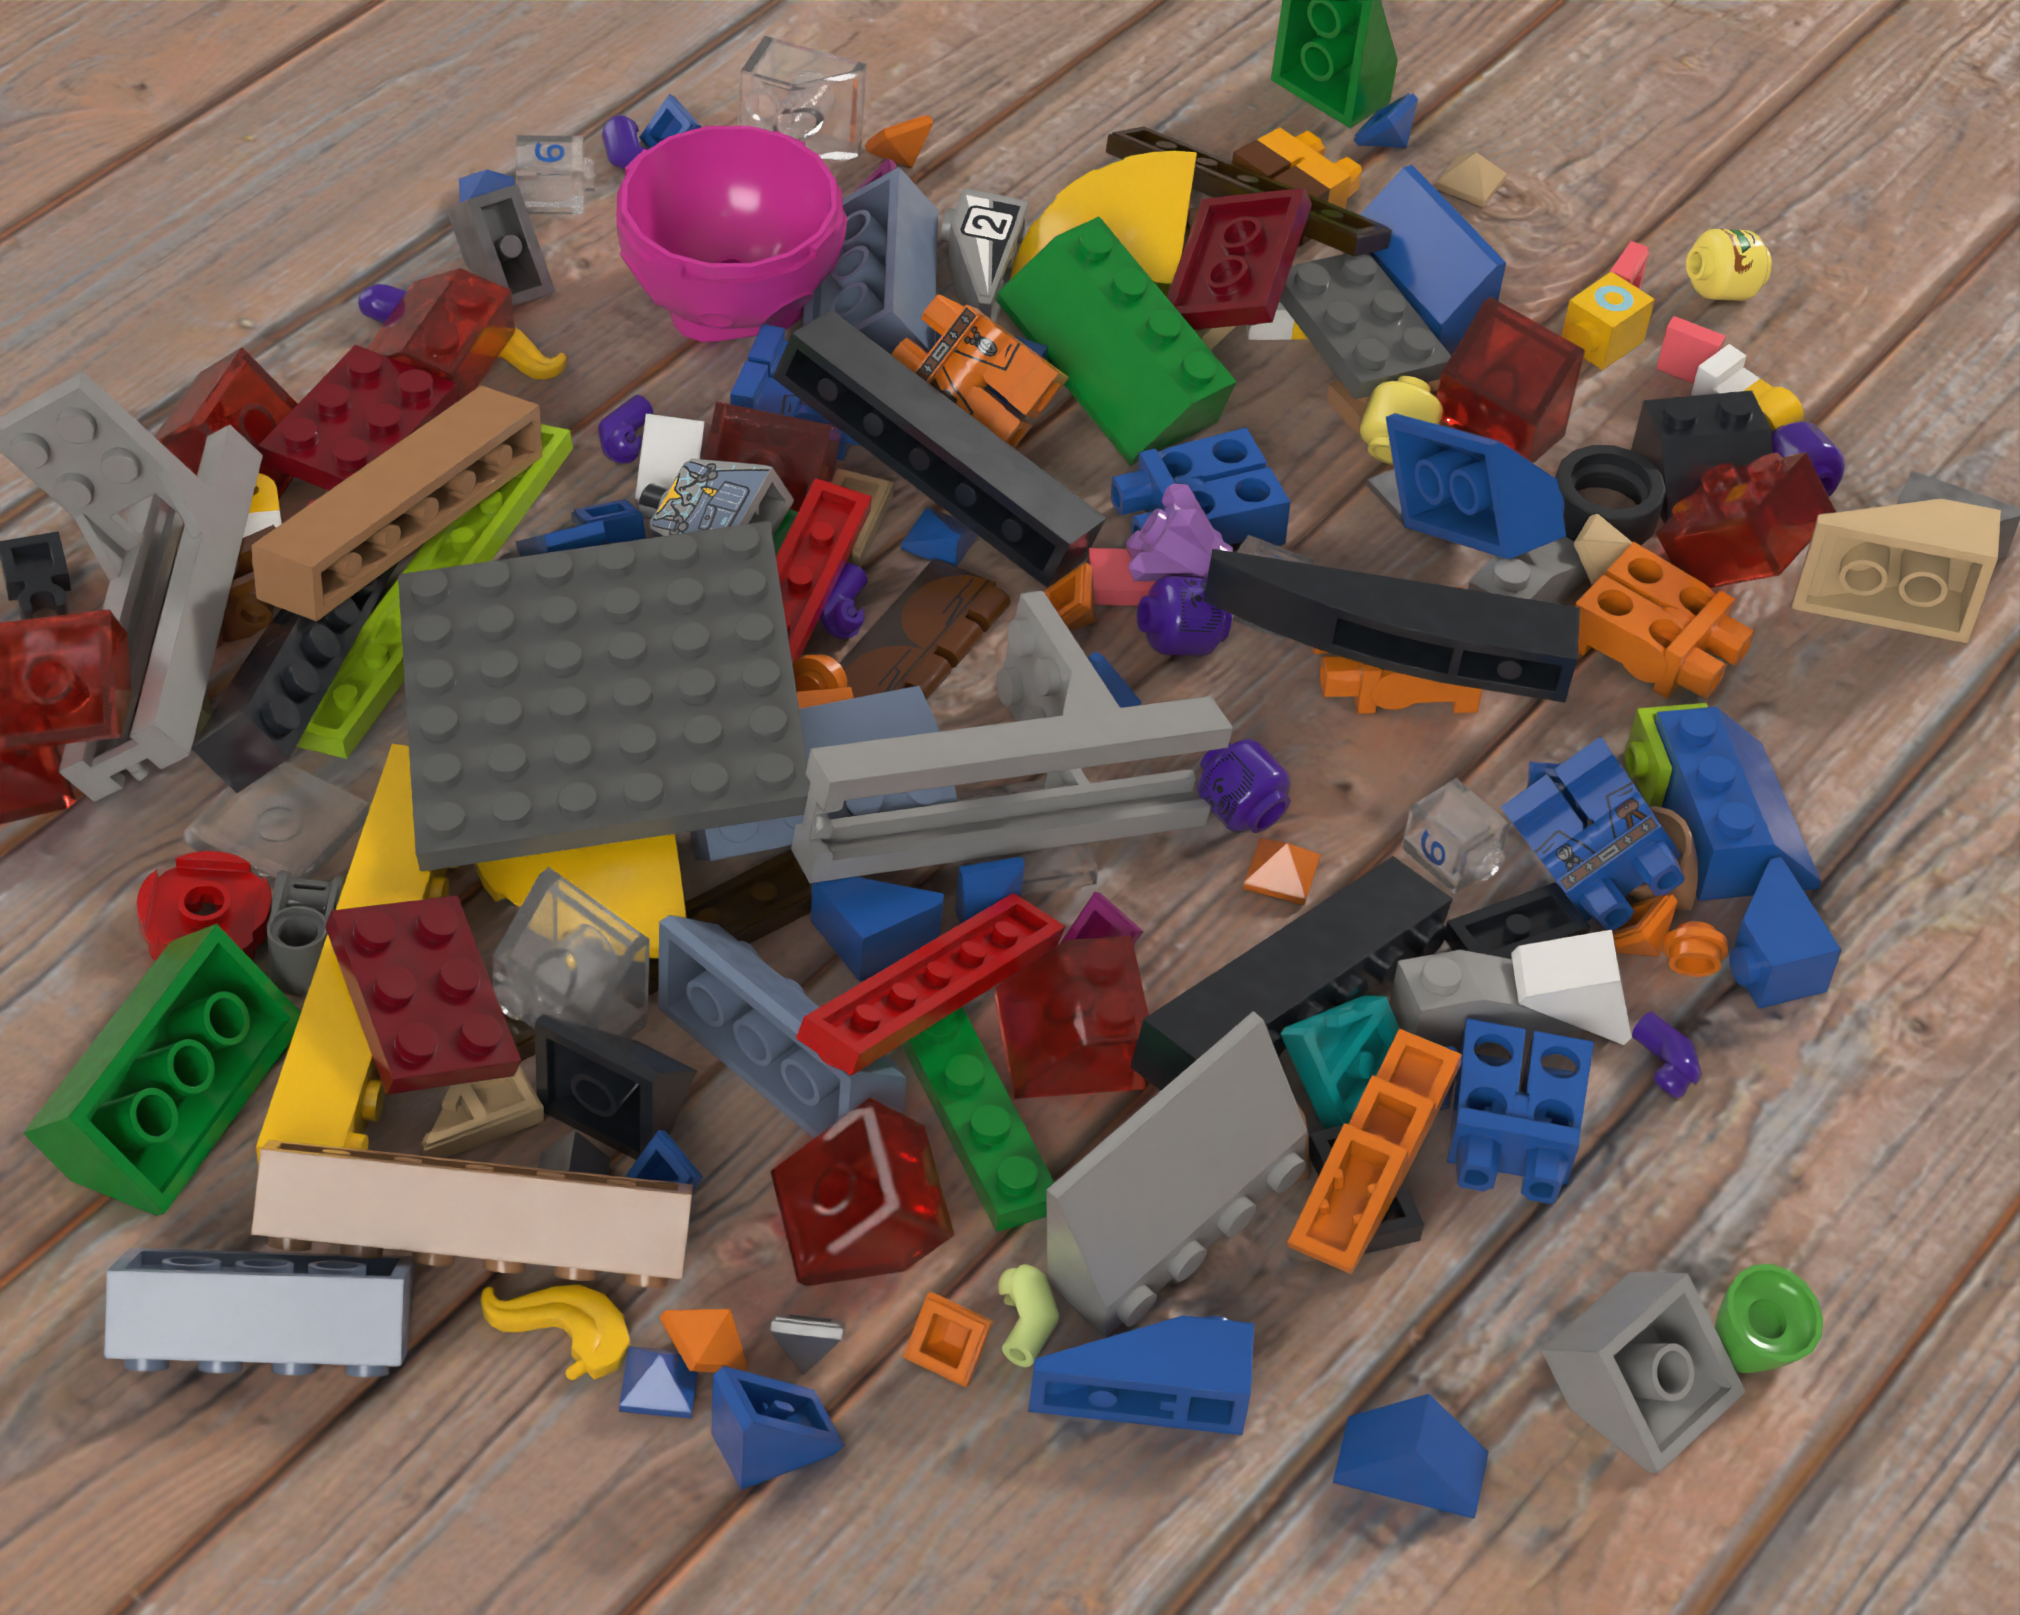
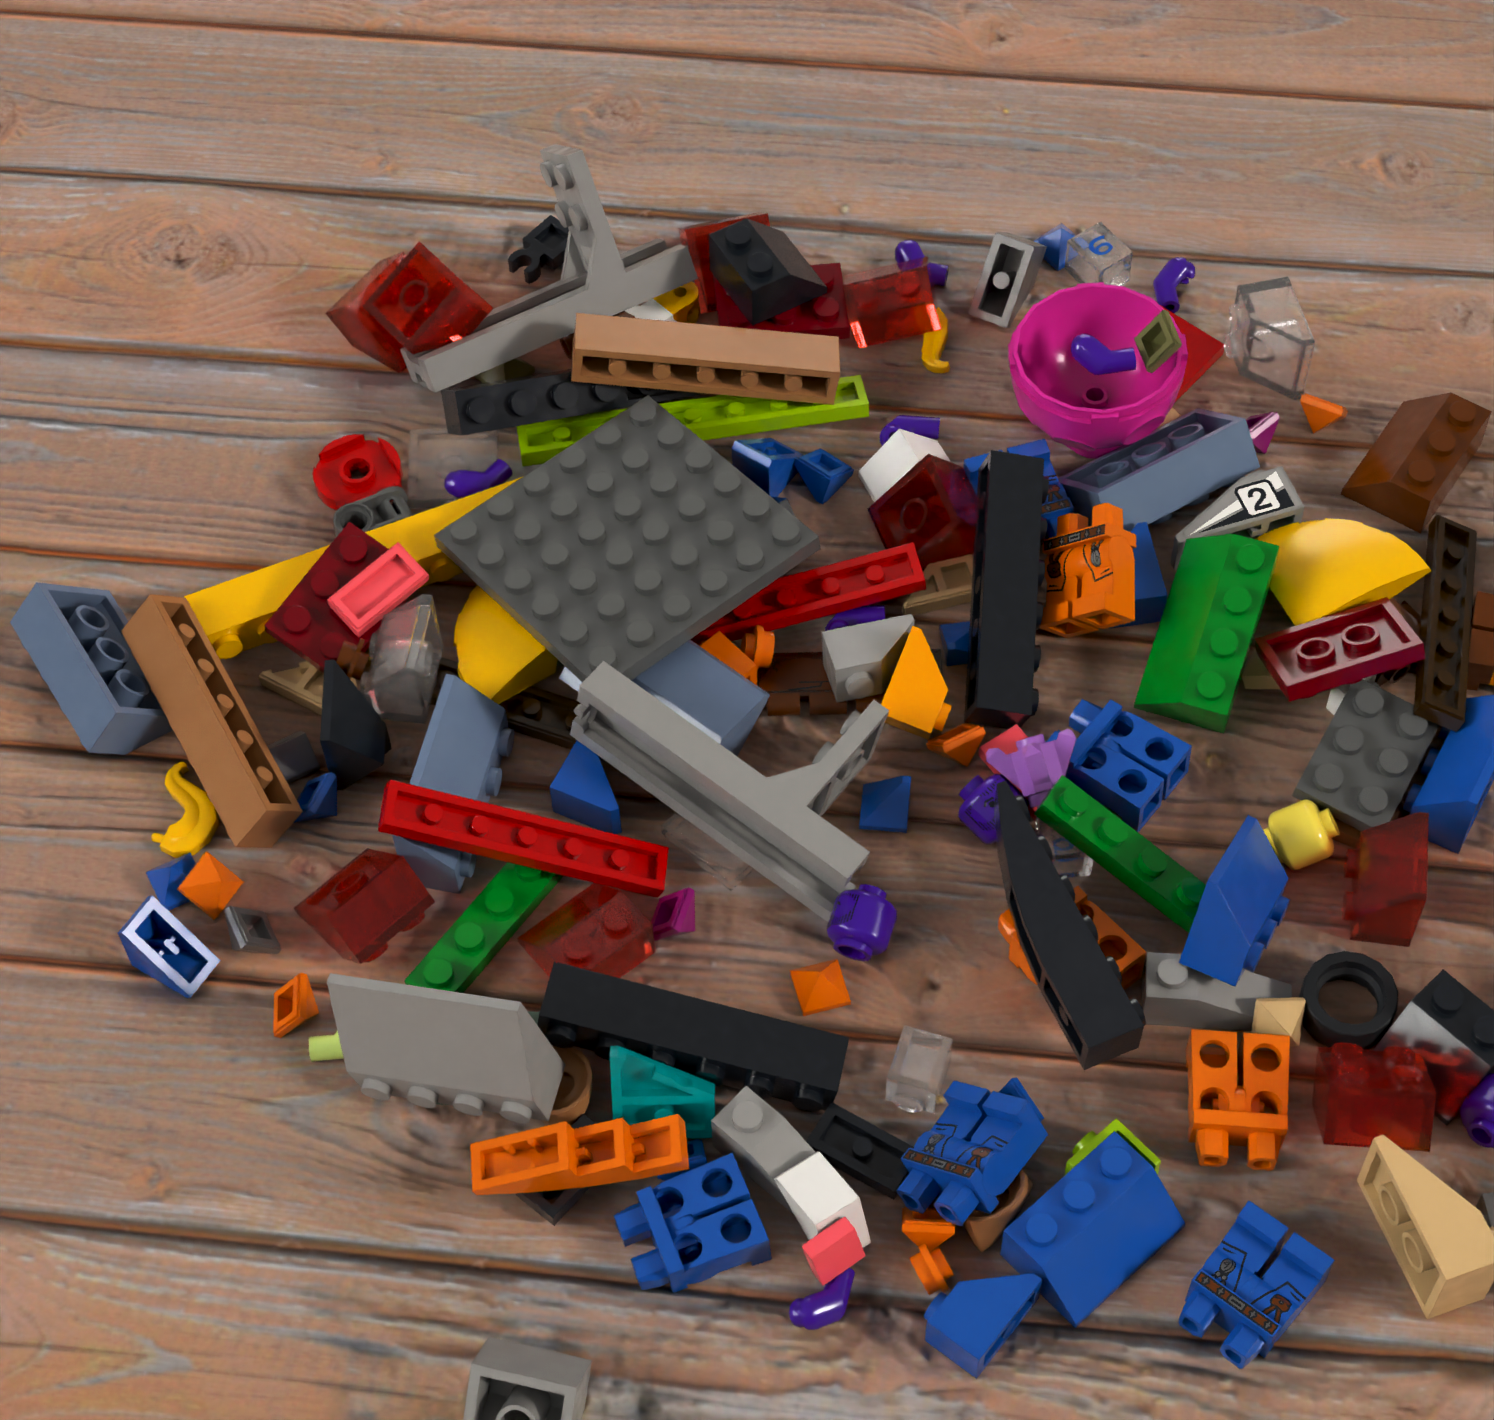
camera: 65 degrees right, 10 degrees up
(167, 1073) = (222, 529): green slope -> none
(323, 396) = (761, 270): none -> black slope
(347, 801) = (467, 482): none -> dark purple arm
(456, 937) = (378, 589): none -> coral tile
(519, 1016) = (352, 659): none -> reddish brown plate
(669, 120) = (1205, 295): blue slope -> none
(714, 497) = (849, 518): torso -> none
(753, 195) = (1099, 359): none -> dark purple arm
(784, 141) = (1158, 341): none -> olive slope
(912, 606) = (864, 656): none -> light grey slope
(986, 577) = (917, 690): none -> light orange slope
(986, 884) = (660, 830): blue slope -> none
(1025, 110) = (1418, 458): none -> reddish brown slope
(1163, 1375) = (339, 1133): blue slope -> none
(1335, 541) = (1122, 851): none -> green plate
(1414, 1456) = (369, 1312): blue slope -> none
(1639, 998) = (833, 1250): none -> coral tile
(1869, 724) = (1241, 1302): none -> blue hips

